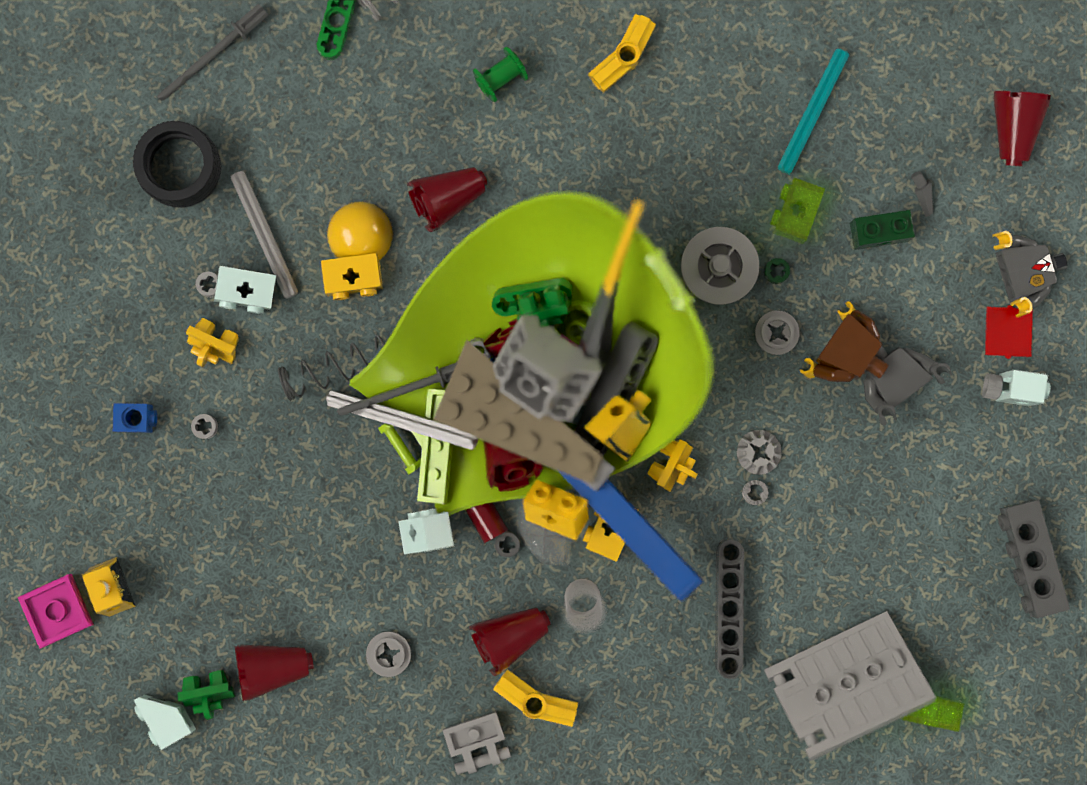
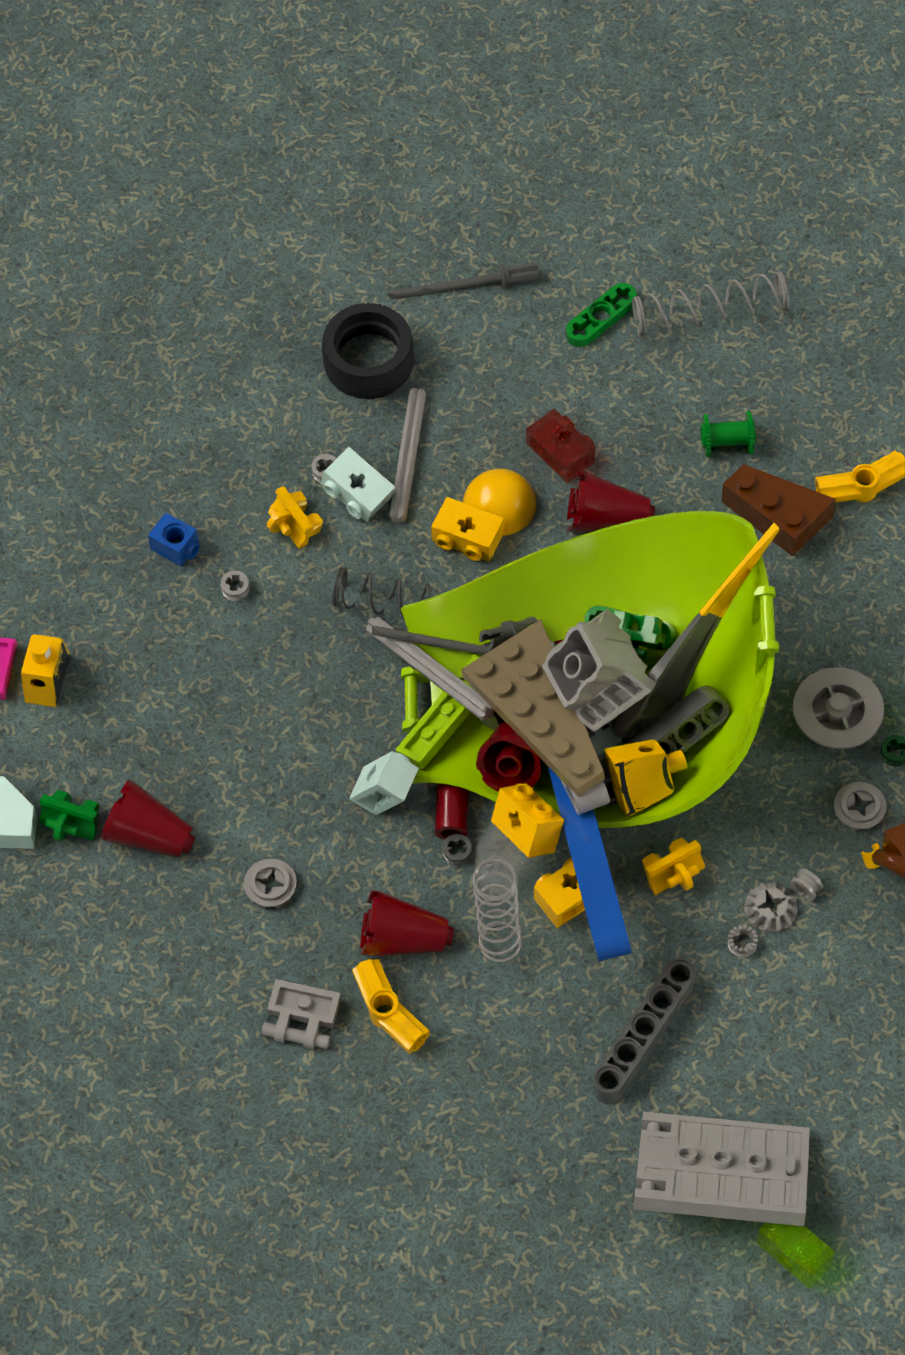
camera: 30 degrees right, 25 degrees down
(361, 158) = (560, 445): none -> clear red brick
(445, 357) = (504, 632): none -> dark grey pin
(574, 117) = (770, 500): none -> reddish brown wedge
(776, 421) = (806, 884): none -> light grey bush

